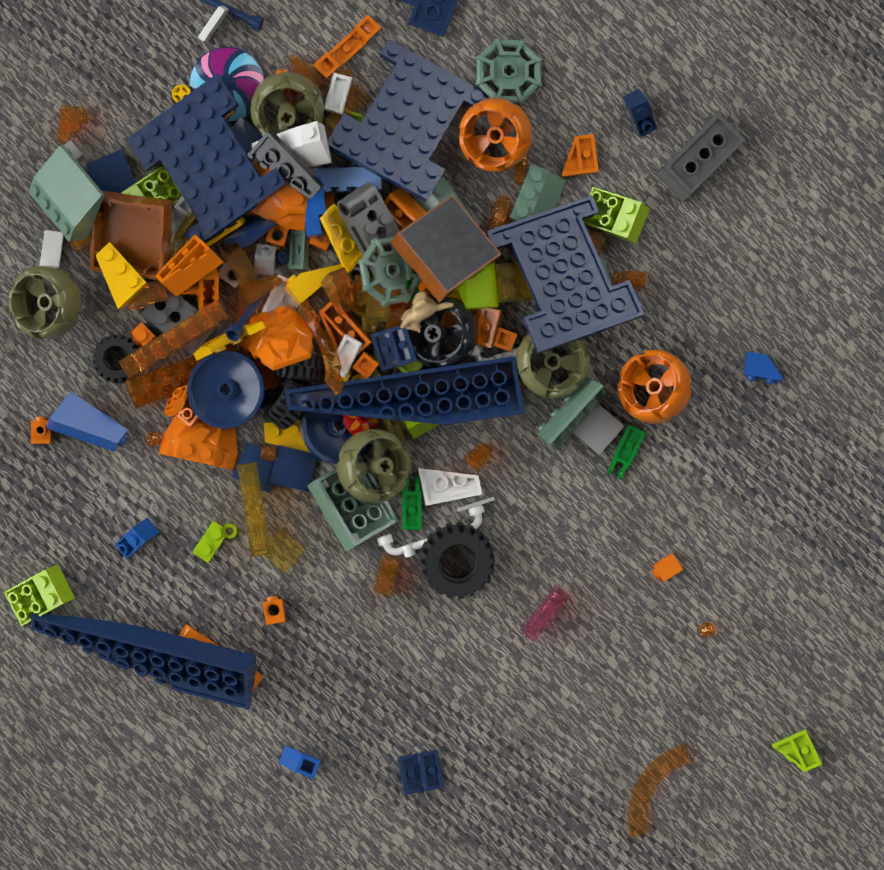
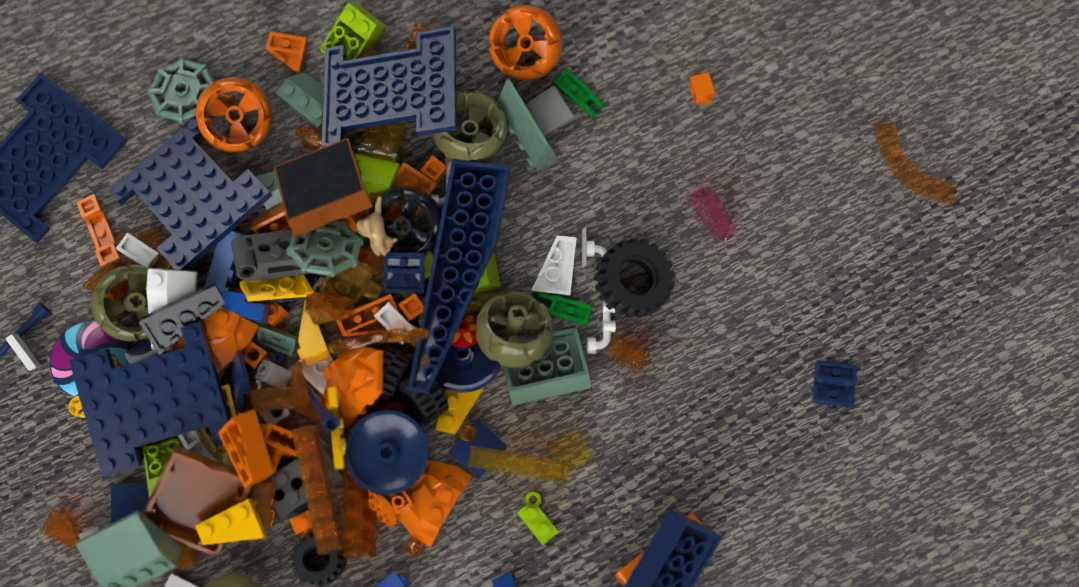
camera: 70 degrees left, 10 degrees down
(272, 619) = (637, 479): orange brick -> none
(293, 468) = (490, 413): dark blue slope -> none
(300, 761) = (792, 501): blue slope -> none
(479, 456) = (539, 229): clear orange slope -> none
(521, 170) = (280, 108): clear orange axle -> none
(706, 630) = (772, 71): clear orange hinge -> none
(799, 750) = (911, 22): lime wing -> none

